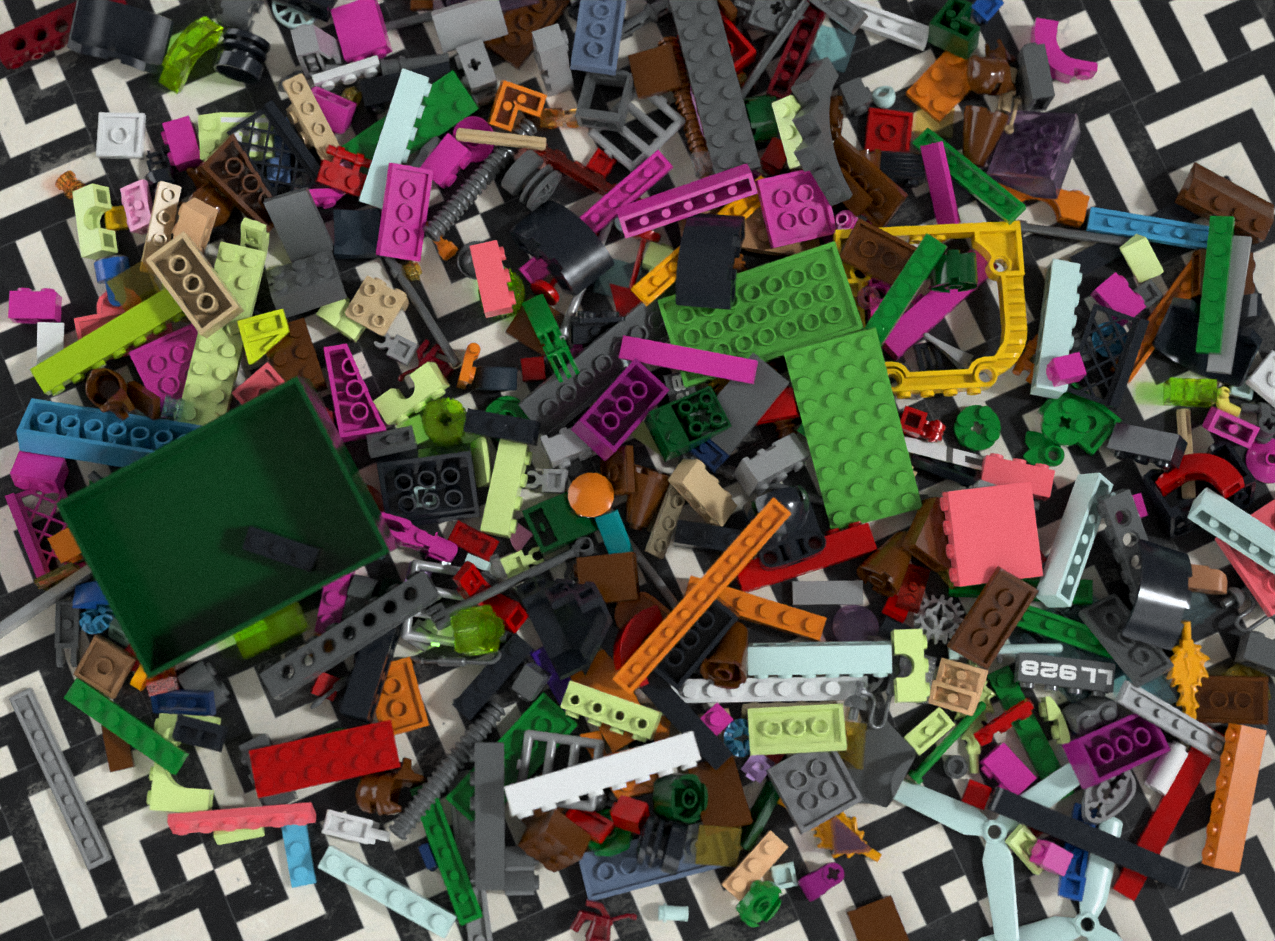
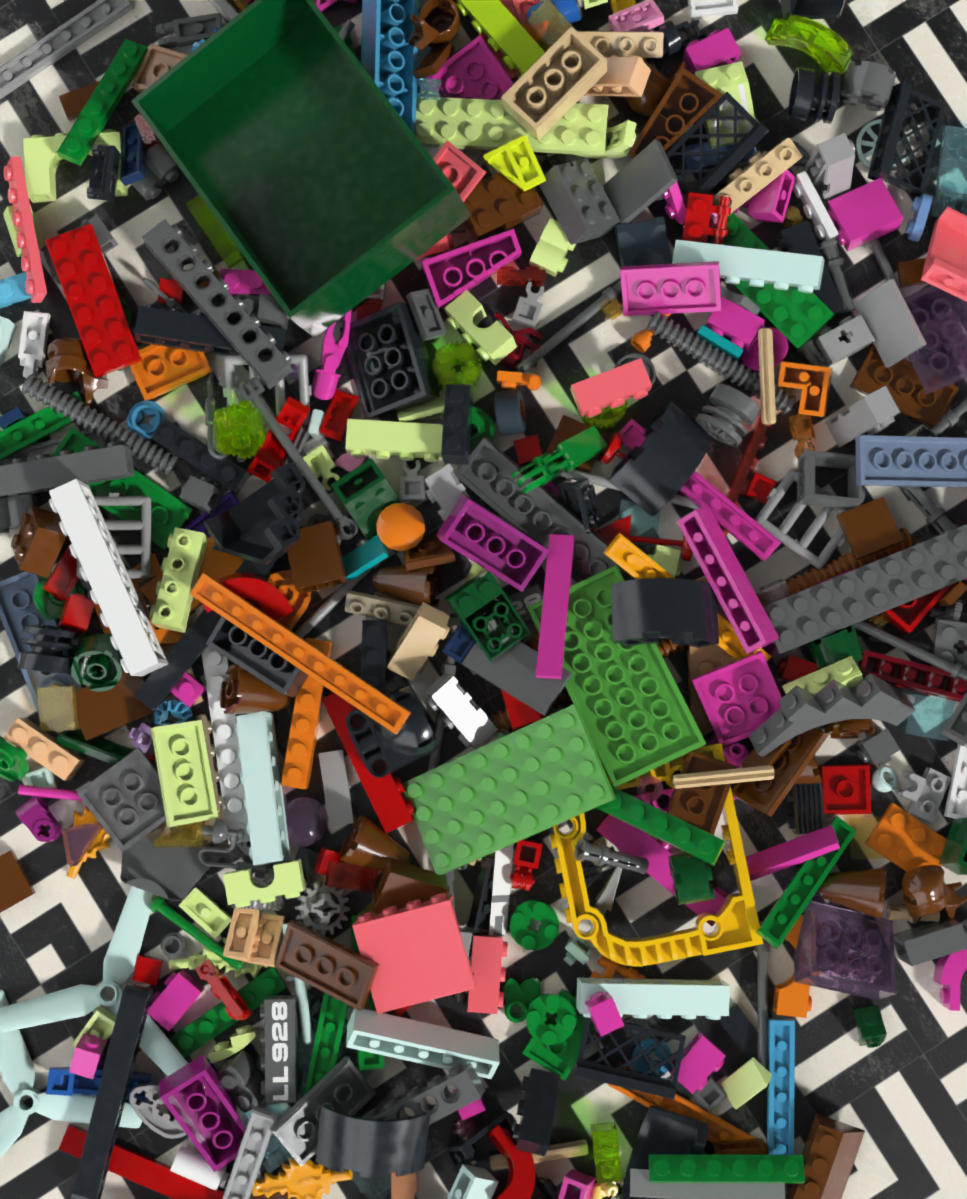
camera: 85 degrees right, 5 degrees up
(282, 548) = (293, 218): black brick -> none
(365, 359) = (511, 277): none -> clear red plate
(376, 305) = (568, 277): tan bracket -> none
(438, 721) = (135, 418): none -> dark azure gear
(460, 178) = (719, 342): none -> teal tile
(797, 864) = (48, 792): none -> dark pink bar
(867, 230) = (723, 777): none -> tan axle
(900, 63) = (924, 792): none -> light grey plate
(923, 350) = (601, 855): none -> dark grey pin
(1005, 391) = (578, 950): none -> sand green tile
(1009, 129) = (869, 920): tan hinge -> none
(1102, 143) = (870, 1026): none -> dark green bracket
(1154, 517) = (463, 1127): none -> clear pink plate

